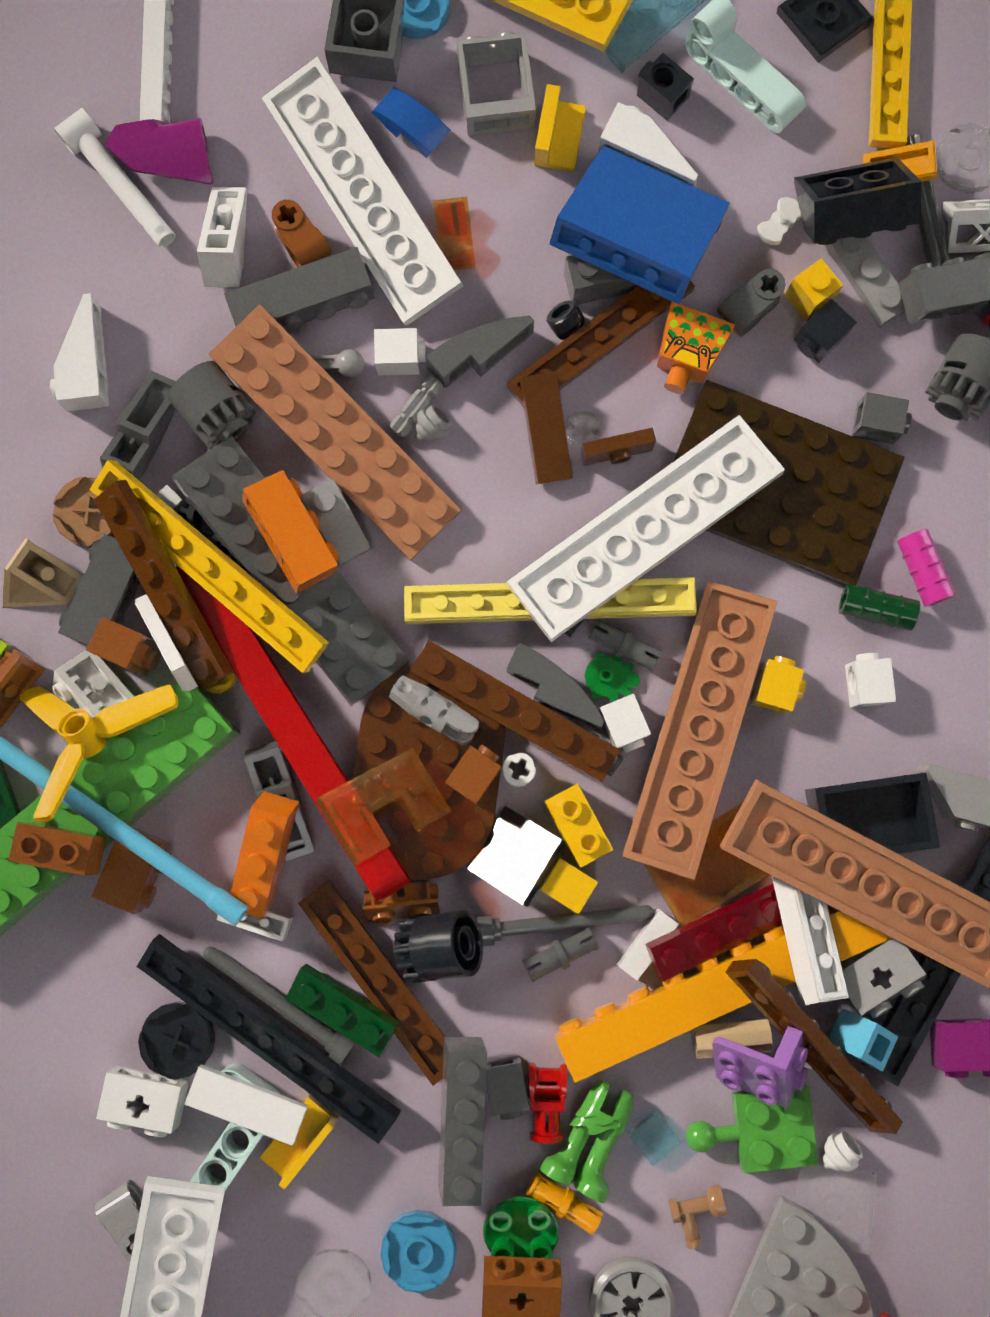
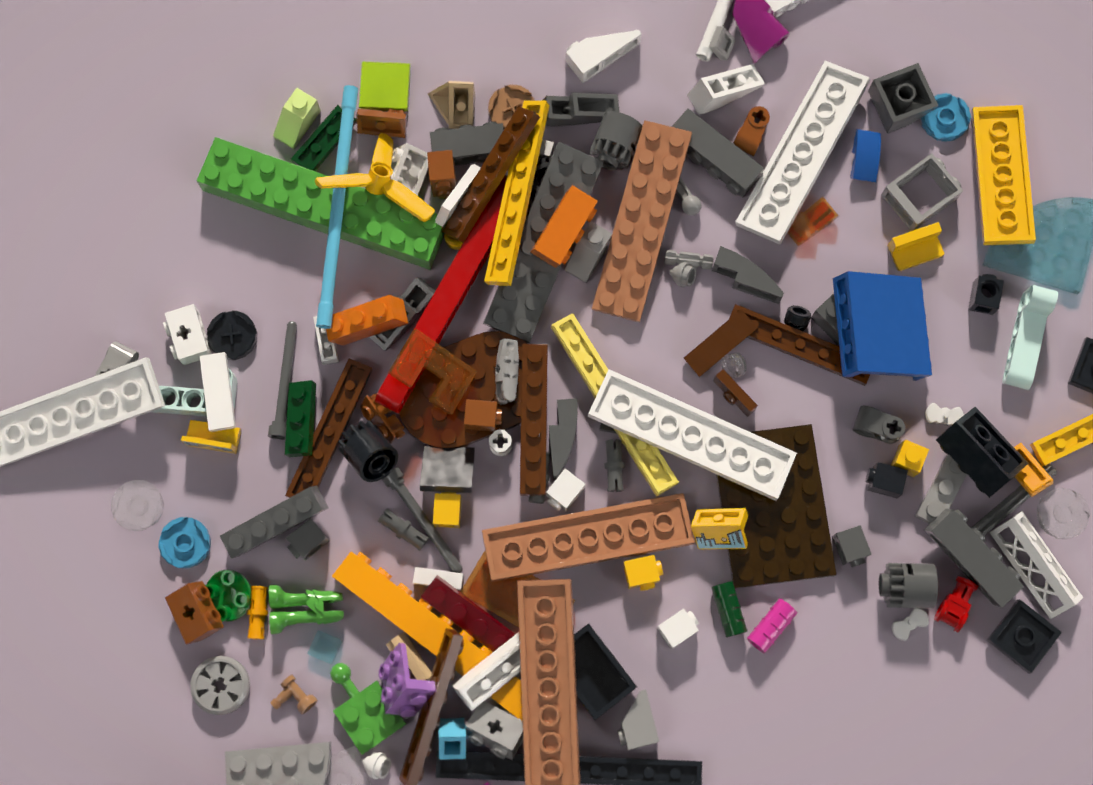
camera: 60 degrees right, 5 degrees down
(57, 848) = (305, 202): dark orange brick -> none
(128, 879) = (309, 252): dark orange brick -> none
(163, 206) = (721, 43): none -> light grey tile
(269, 1038) = (261, 386): black plate -> none
(398, 351) = (715, 229): white brick -> none
(547, 1095) = (312, 568): red connector -> none
(578, 825) = (486, 496): yellow brick -> none
(610, 677) = (589, 467): green piece -> none
(640, 138) = (939, 296): white slope -> none
(690, 345) = (826, 402): orange torso -> none
(777, 560) = (720, 528): none -> yellow panel

